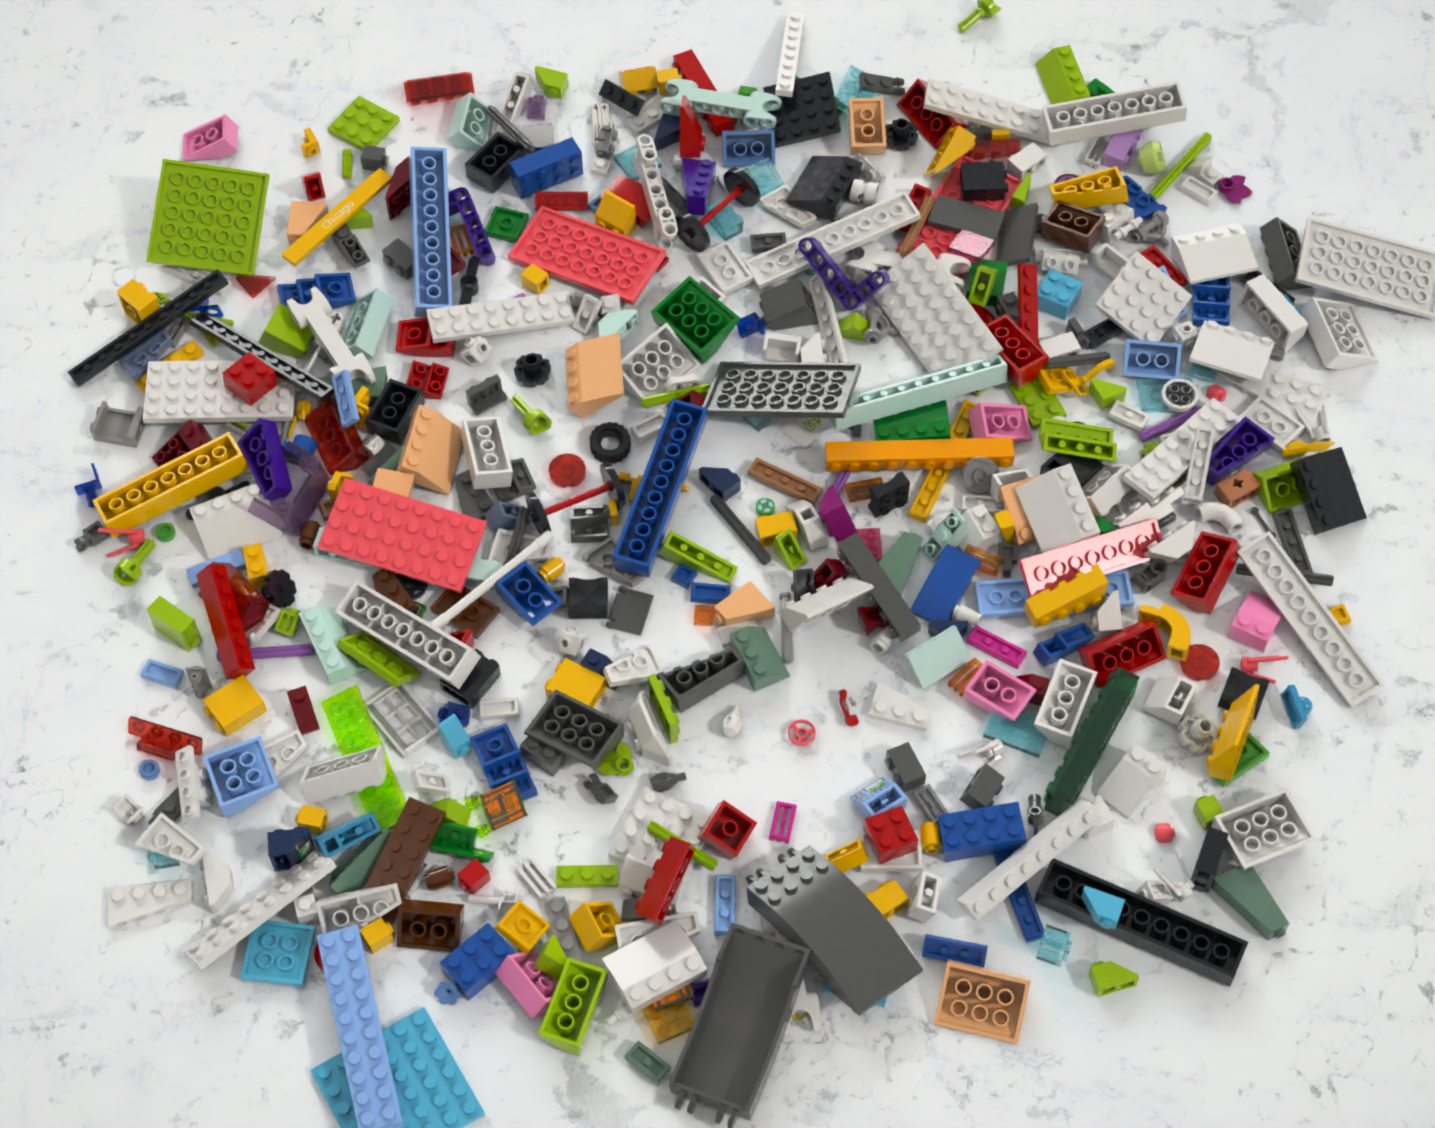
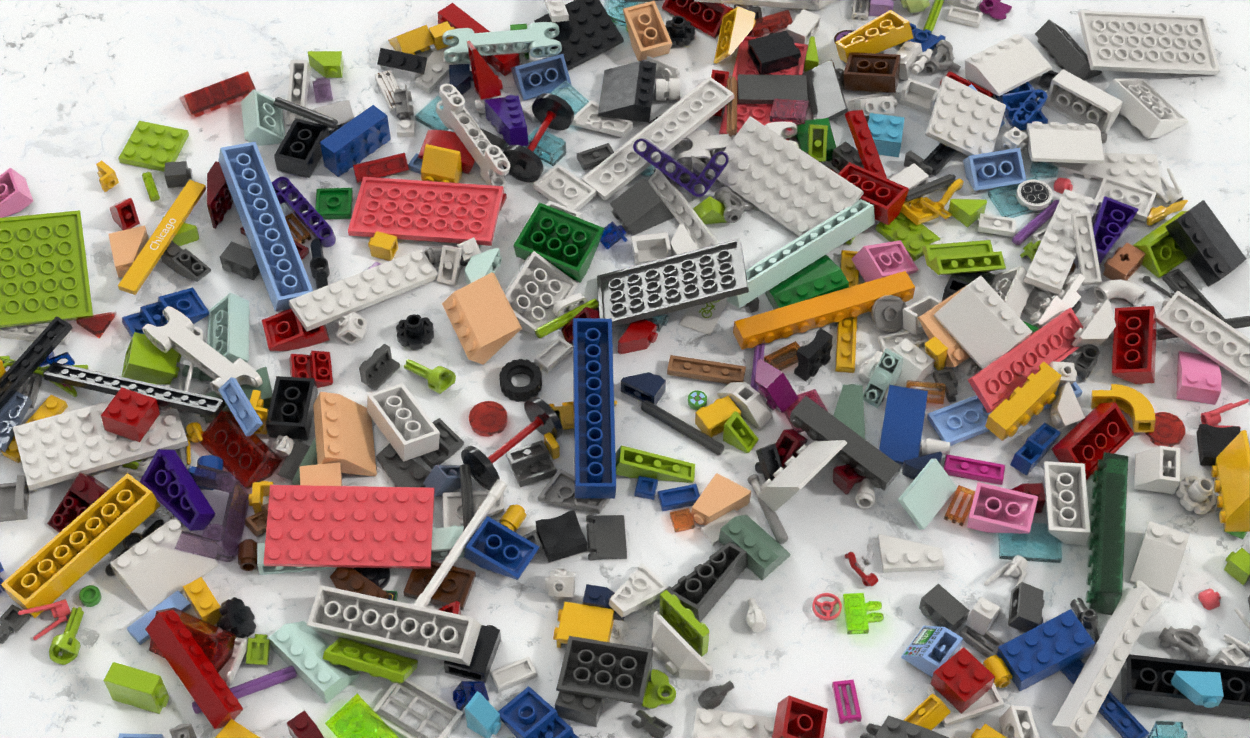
camera: 20 degrees left, 5 degrees down
(733, 431) = (637, 336): none -> red slope
(826, 746) = (856, 614): none -> clear neon green hinge
(940, 782) = (983, 615): none -> white slope
(1000, 134) = (770, 9): yellow tile -> none
(1109, 856) = (1173, 637): none -> light grey piece
(1118, 579) = (1067, 371): none -> white brick
(1210, 312) = (1029, 115): none -> blue beam

